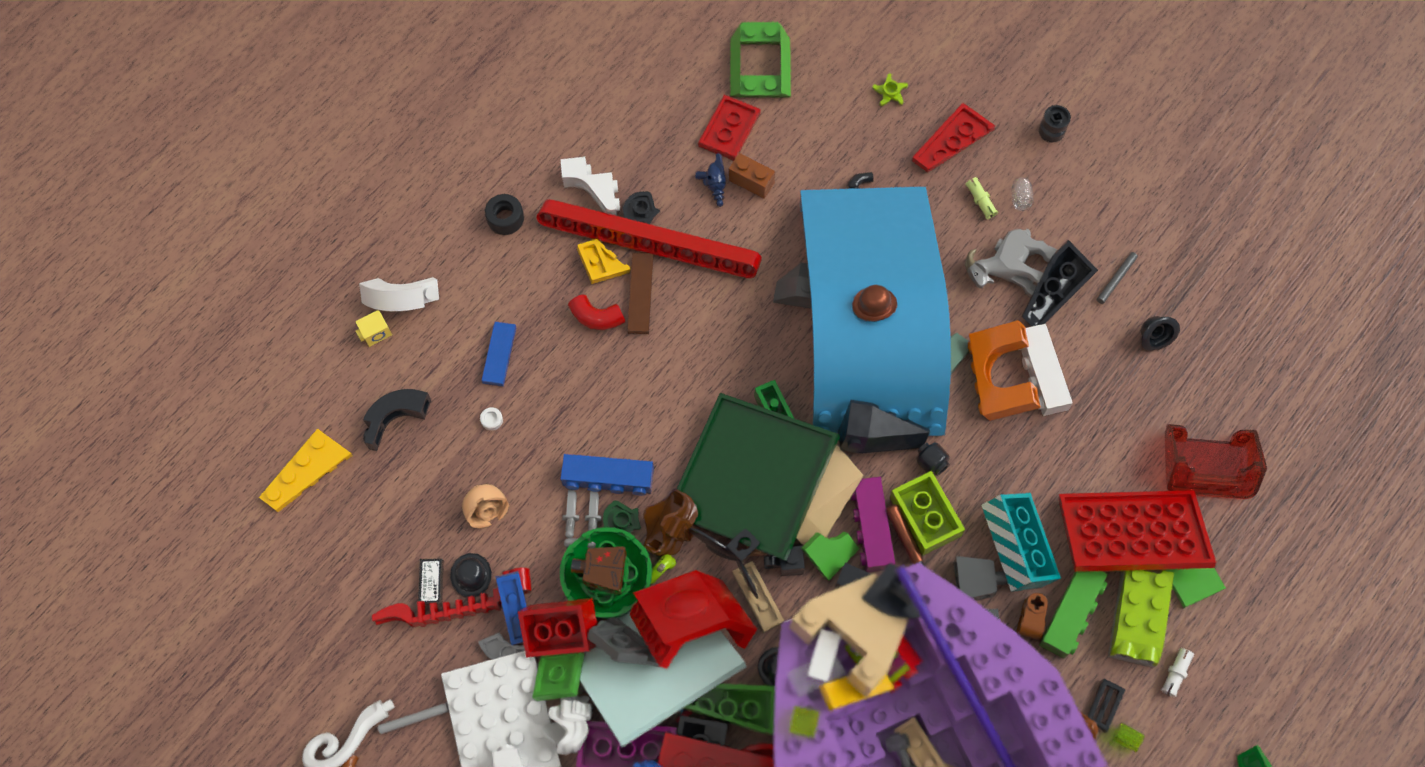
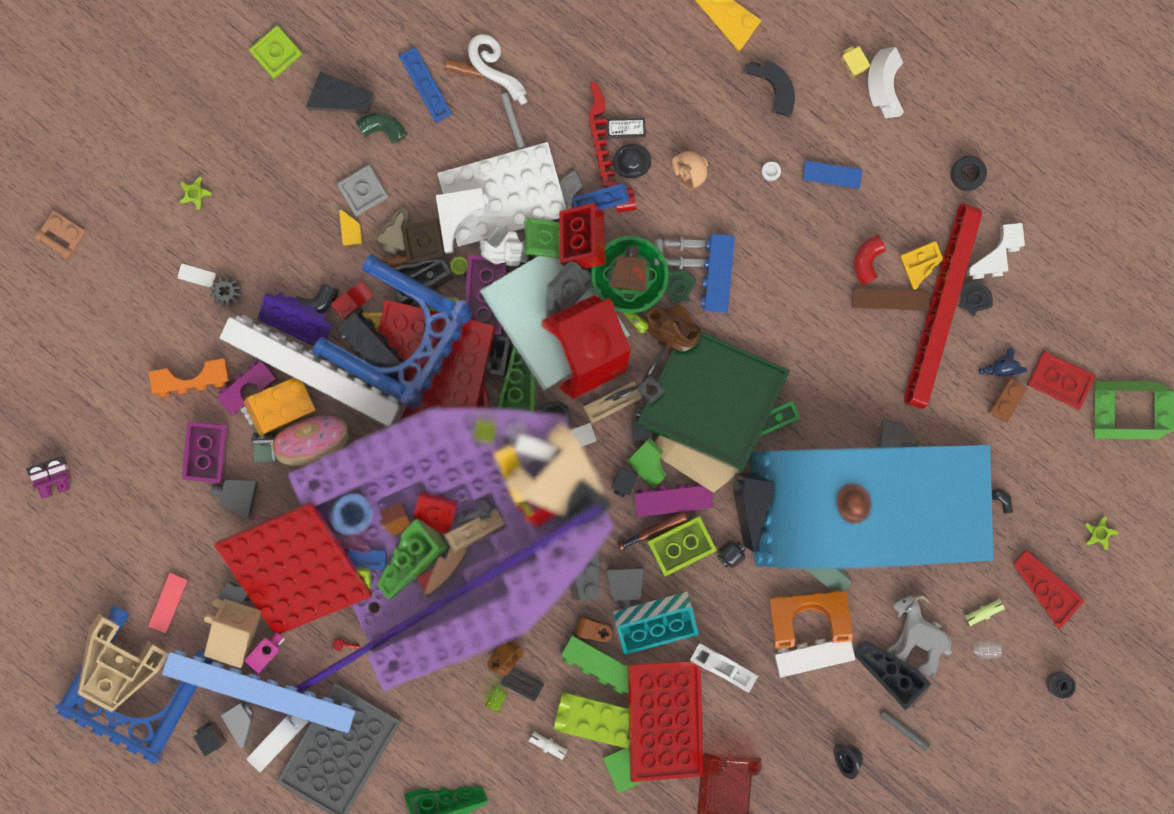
camera: 90 degrees right, 20 degrees up
(1066, 463) = (724, 667): none -> white arch

